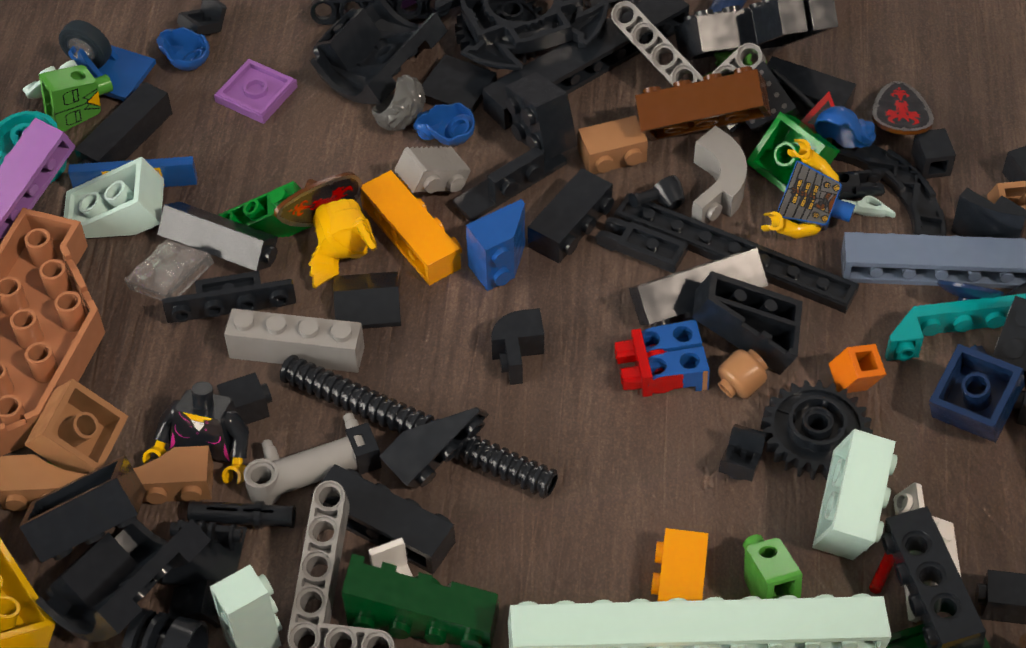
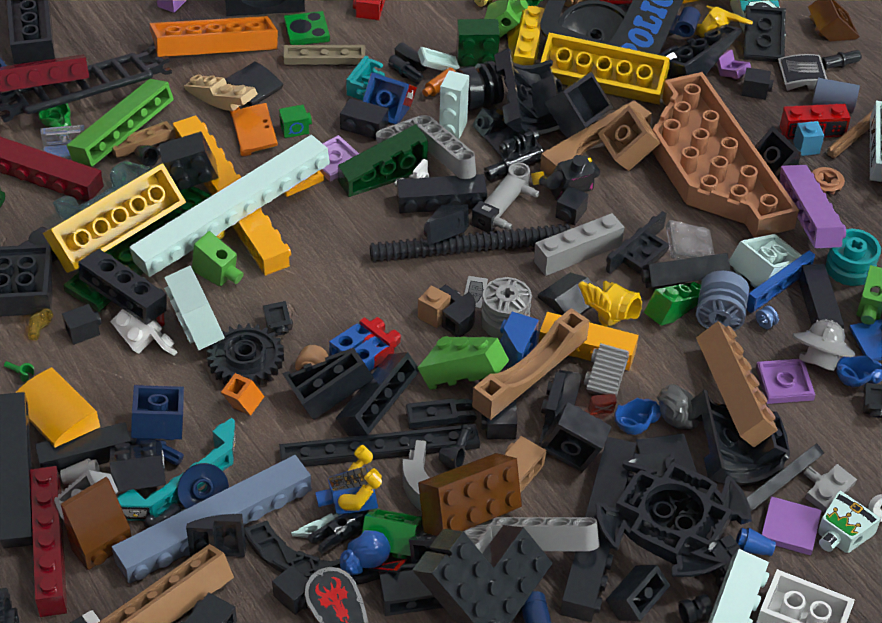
camera: 140 degrees right, 5 degrees down
(193, 73) = (824, 343): none -> light grey helmet
(196, 148) = (767, 317): none -> medium blue bush
(231, 169) = (722, 299): none -> sand blue wheel
(301, 206) = (646, 300): shield -> none
(322, 84) = (737, 384): none -> medium nougat brick
(466, 300) = (500, 299): none -> light grey wheel
(466, 373) = (476, 286): none -> sticker
(470, 153) = (602, 404): none -> clear red tile
(542, 359) = (431, 306): none -> medium nougat brick
(579, 255) = (462, 358): none -> bright green wedge
(580, 184) = (503, 388): none -> medium nougat arch

